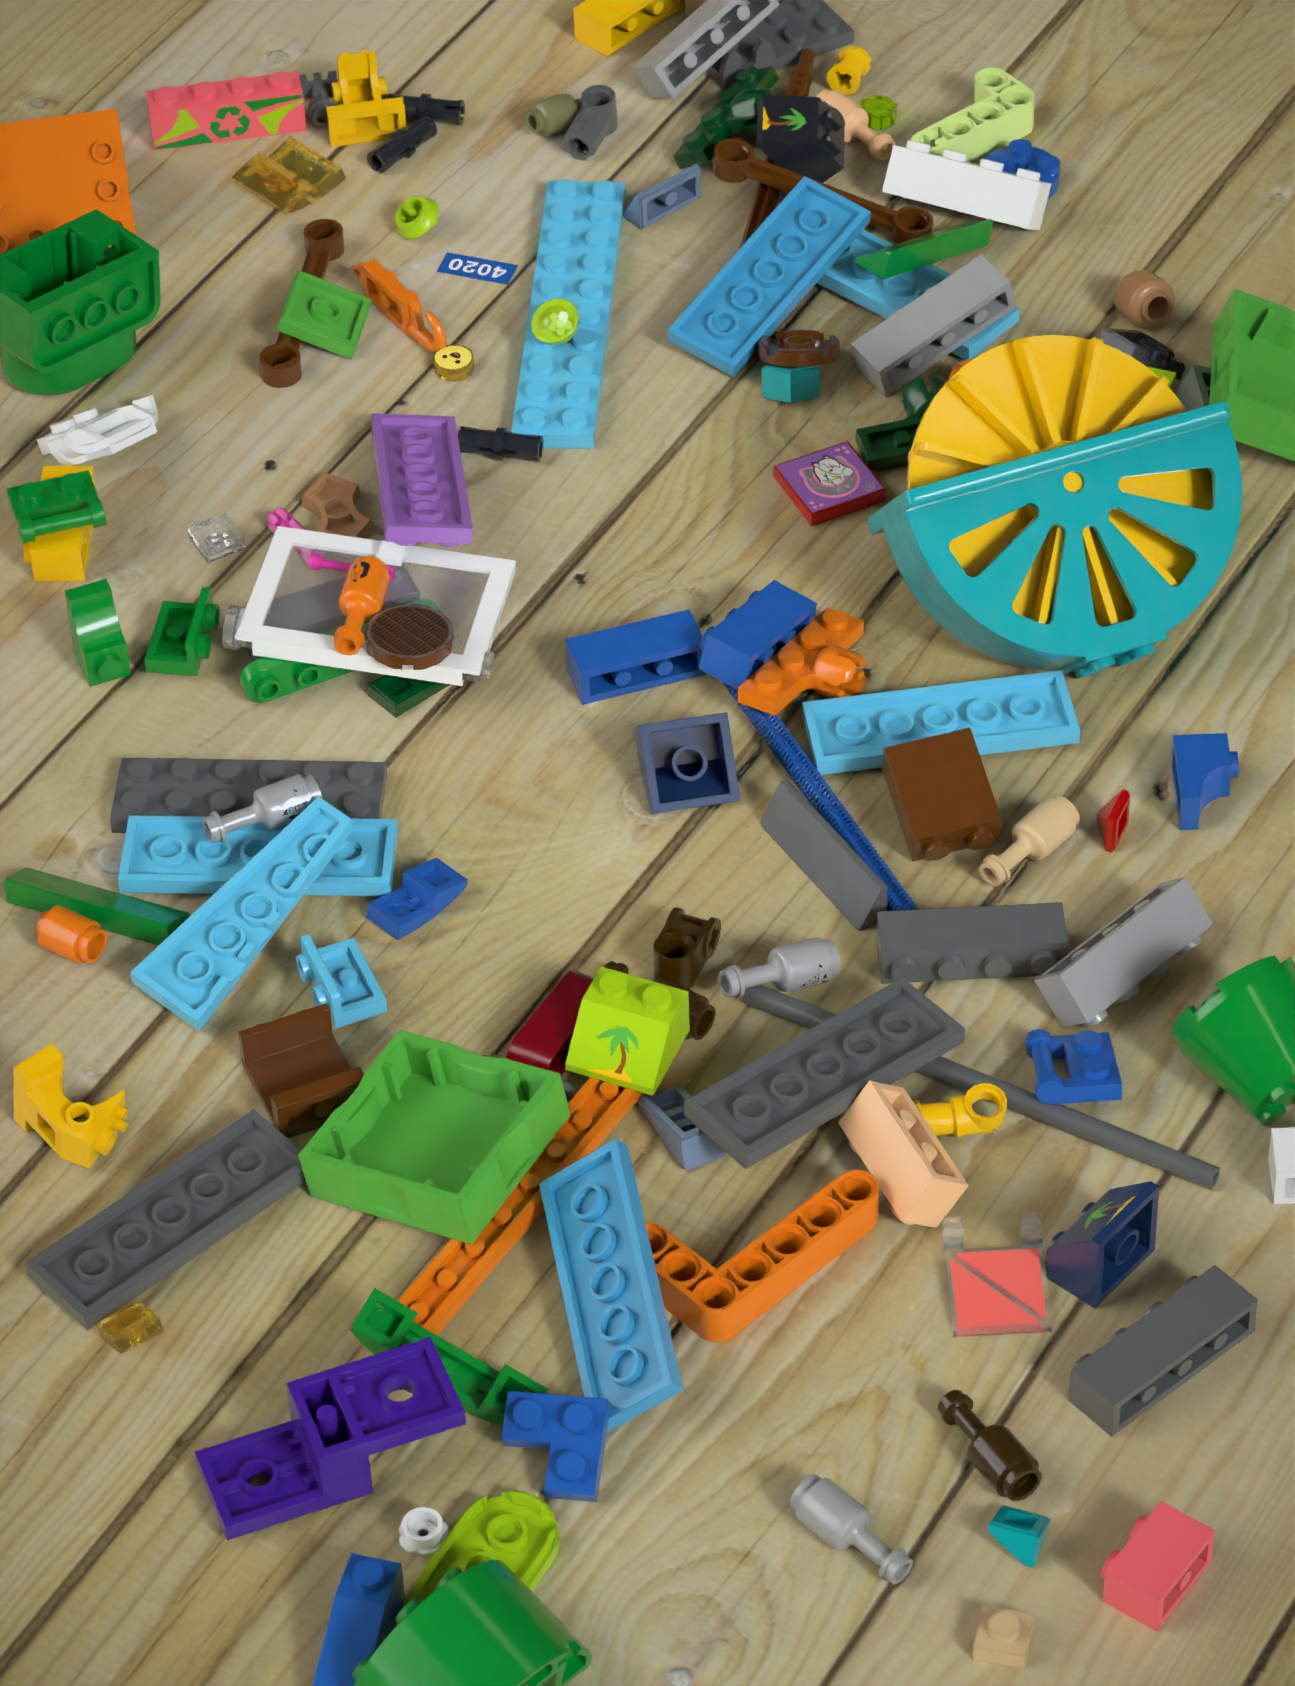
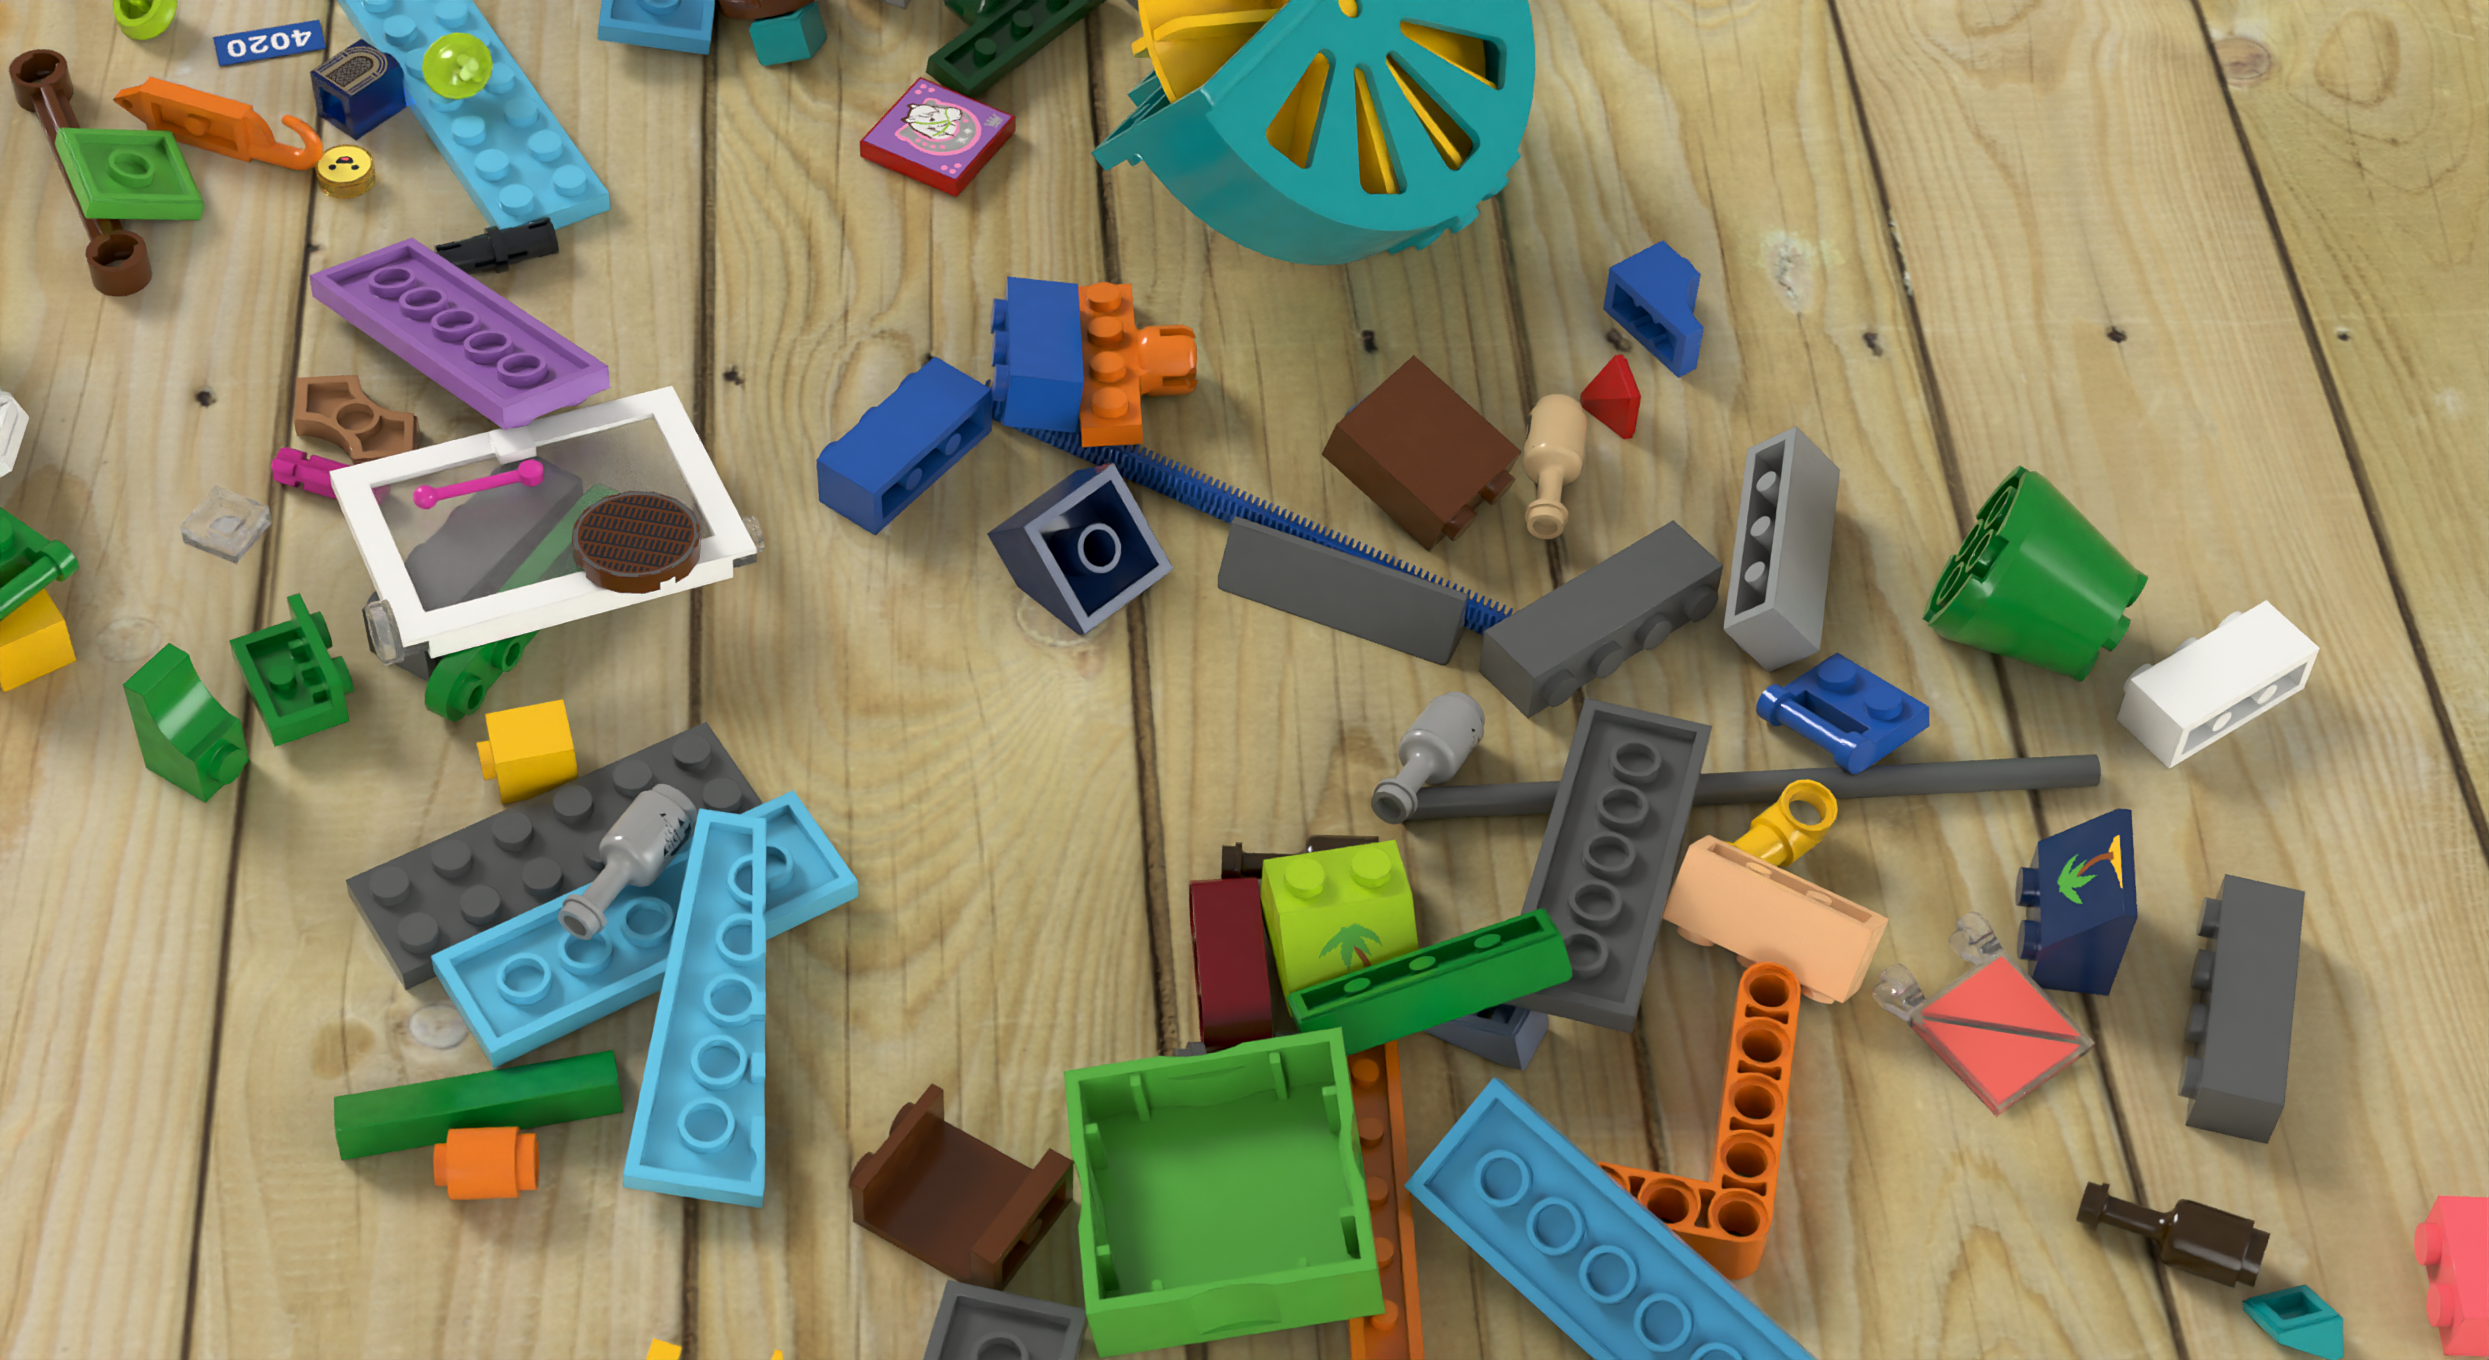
camera: 40 degrees left, 5 degrees up
(273, 731) = (528, 750): none -> yellow brick
(341, 980) = (903, 1041): medium azure bracket -> none
(360, 600) = (540, 523): orange piece -> none
(401, 693) = (637, 627): dark green tile -> none
(423, 895) = (896, 883): blue slope -> none
(498, 315) = (358, 89): none -> clear blue brick
(647, 1083) = (1436, 983): none -> green slope
(684, 946) = (1282, 789): dark brown piece -> none
(1001, 712) = (1317, 368): medium azure plate -> none

